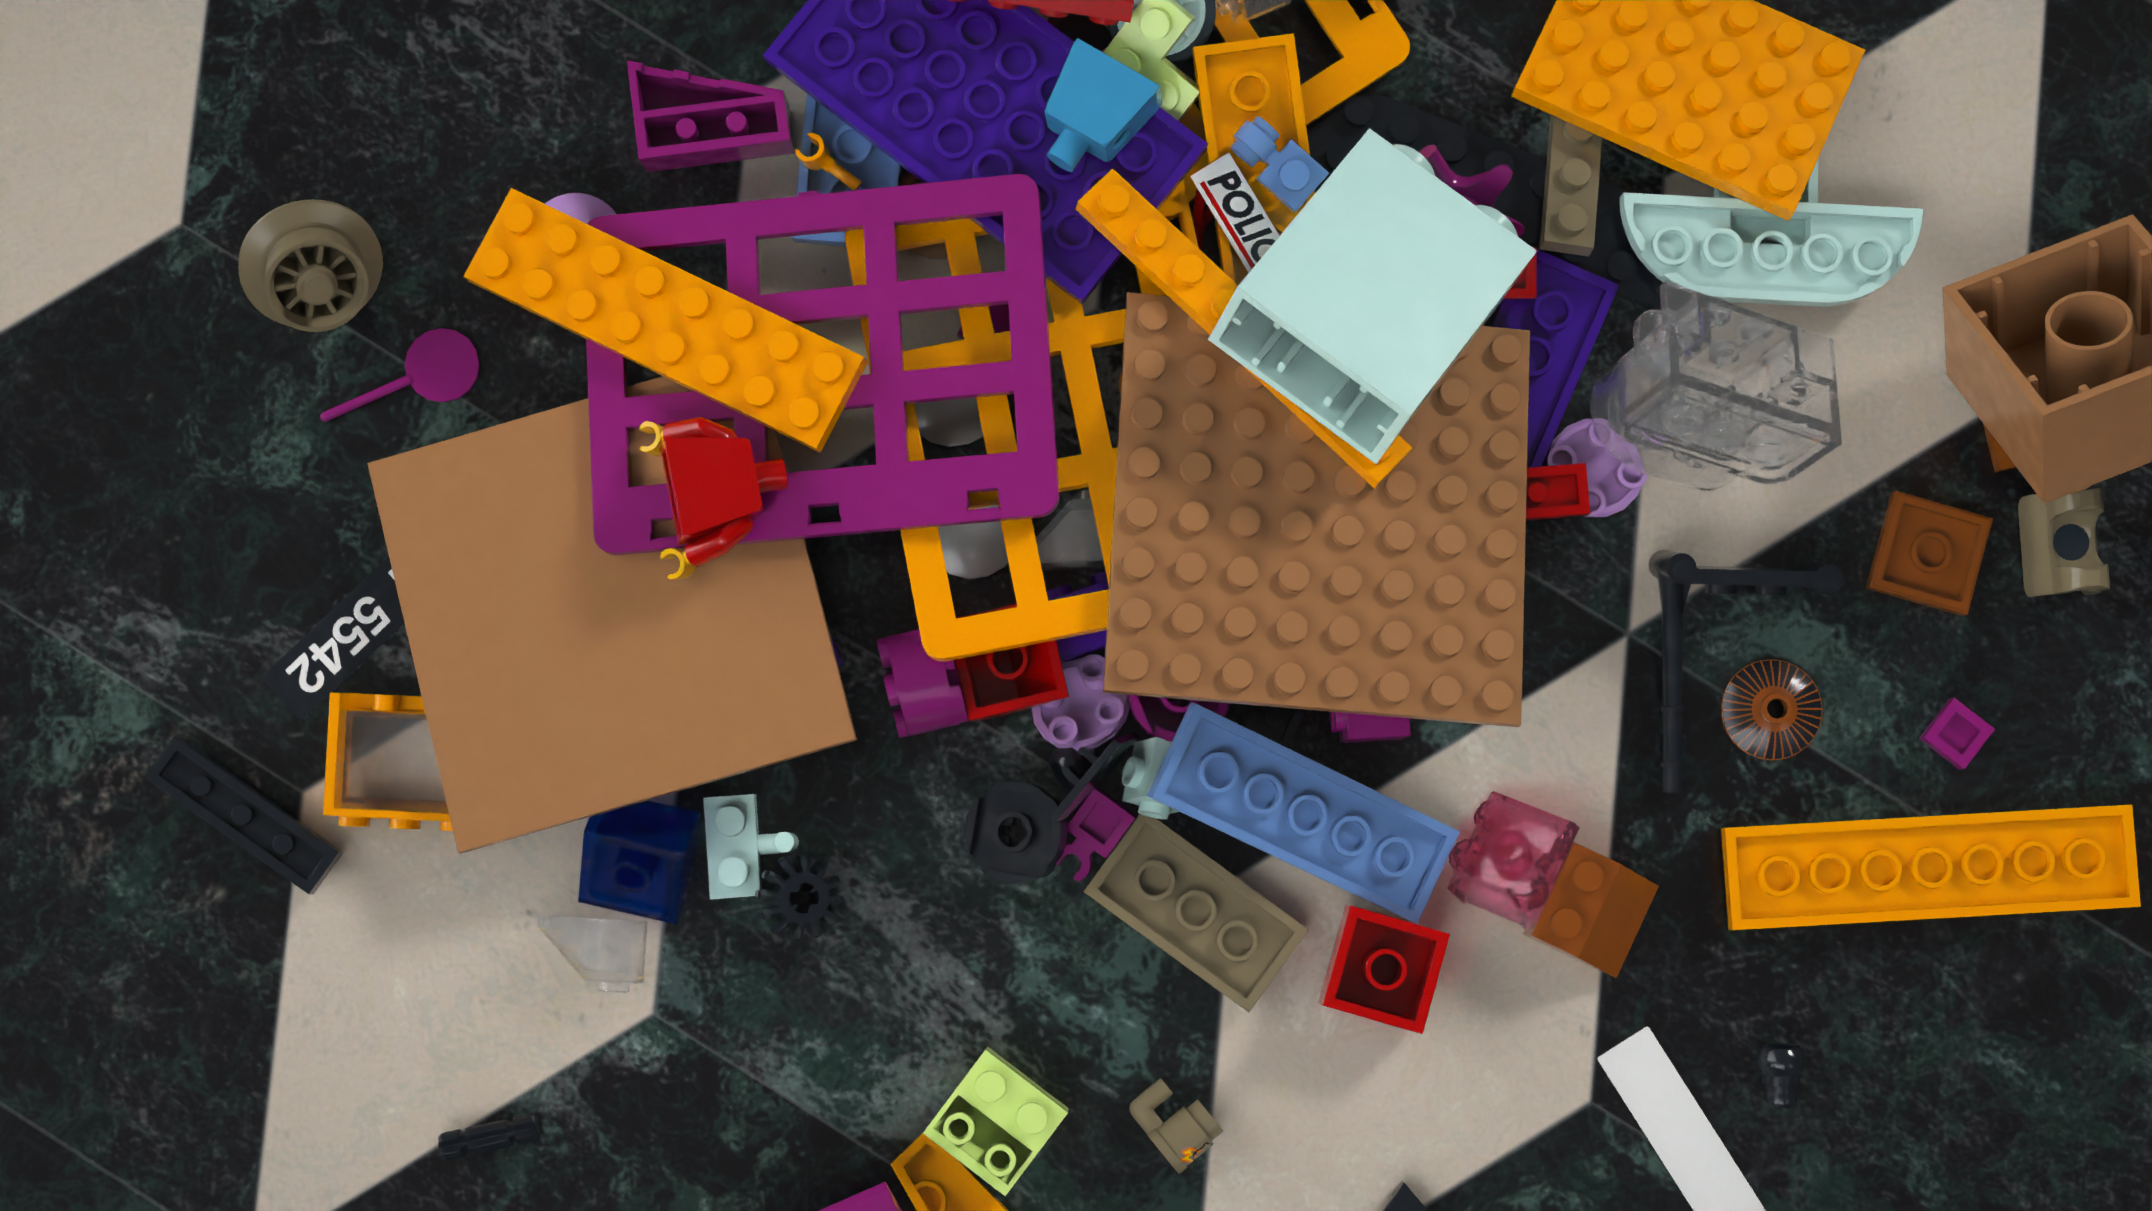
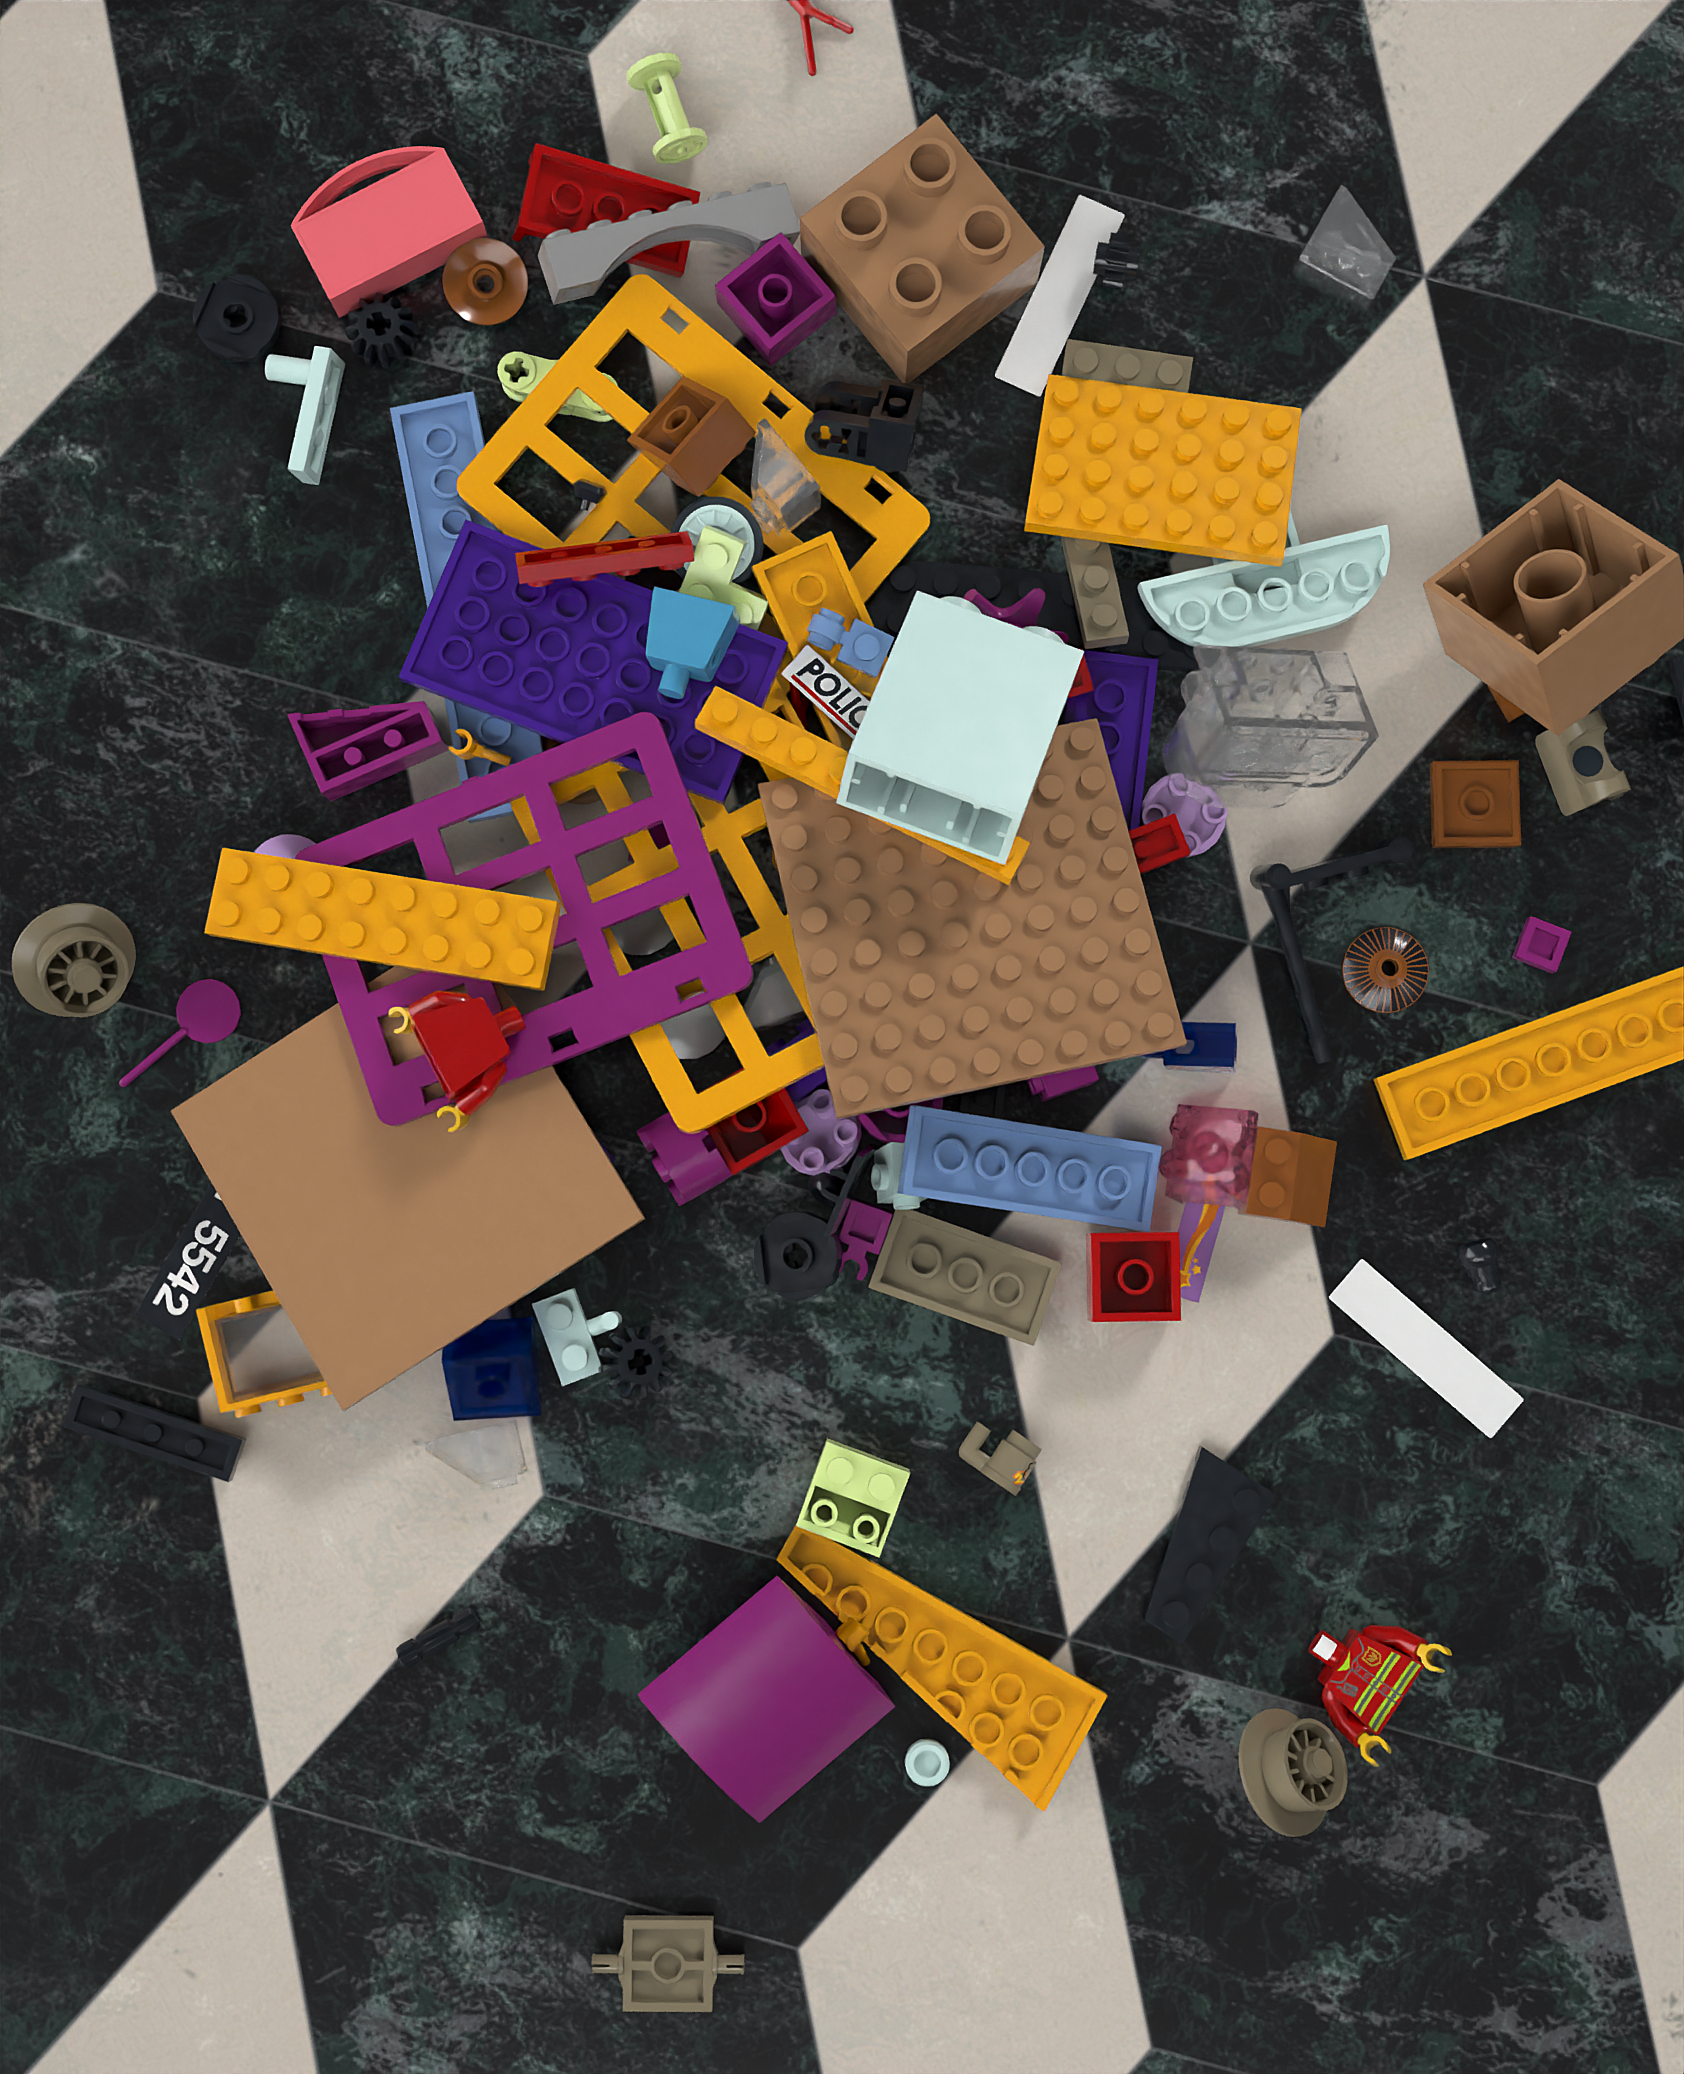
camera: 20 degrees left, 0 degrees up
(1466, 953) = (1197, 1240): none -> medium lavender sticker
(1548, 743) = (1213, 1049): none -> clear blue torso

